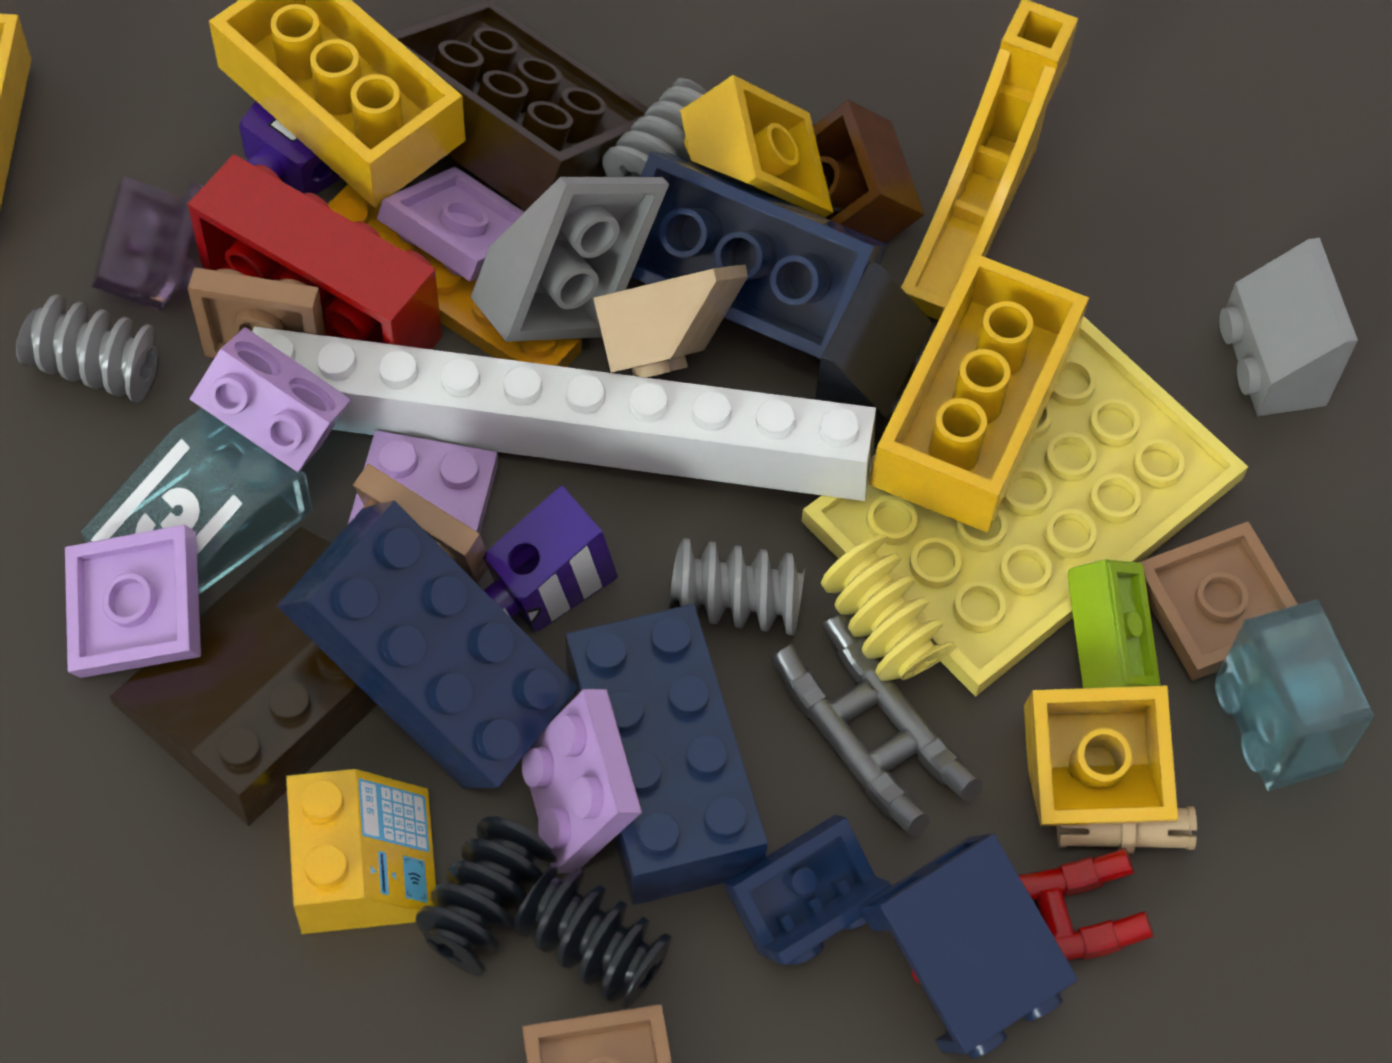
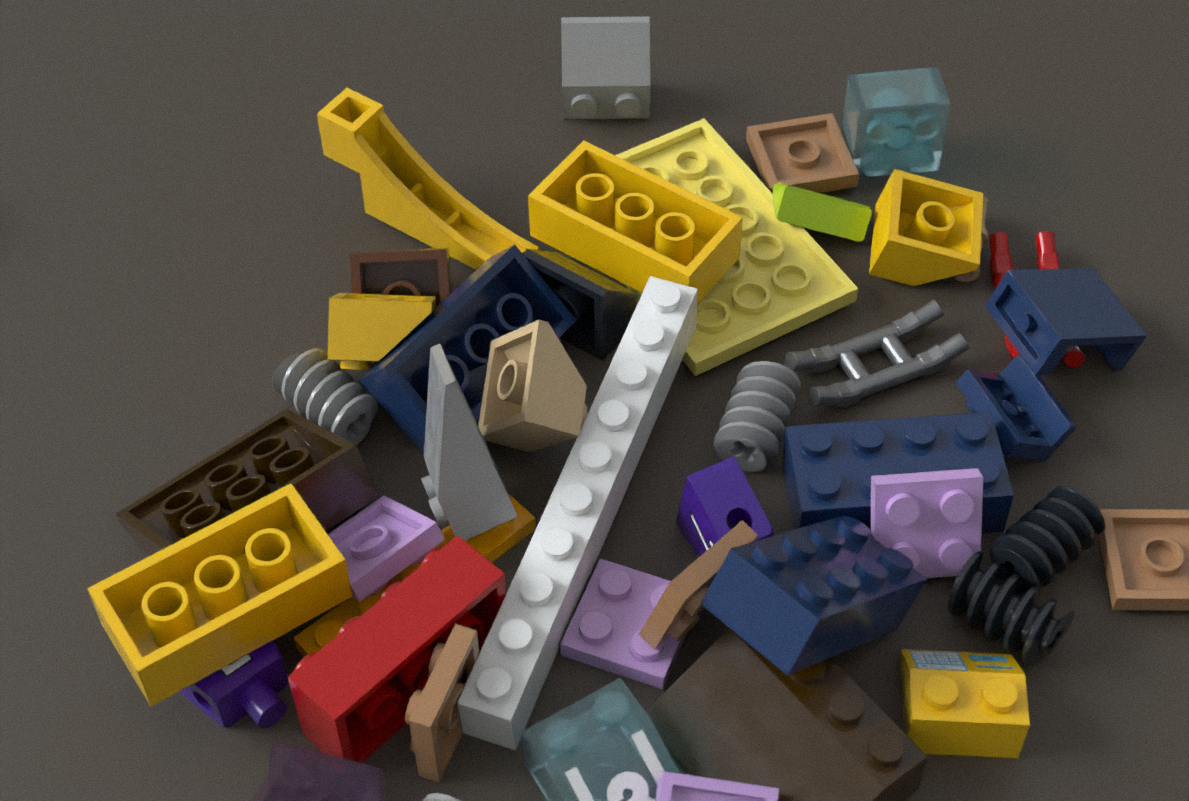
camera: 75 degrees left, 10 degrees down
(270, 399) = (551, 684): lavender brick -> none
(884, 612) = (805, 316): light yellow piece -> none

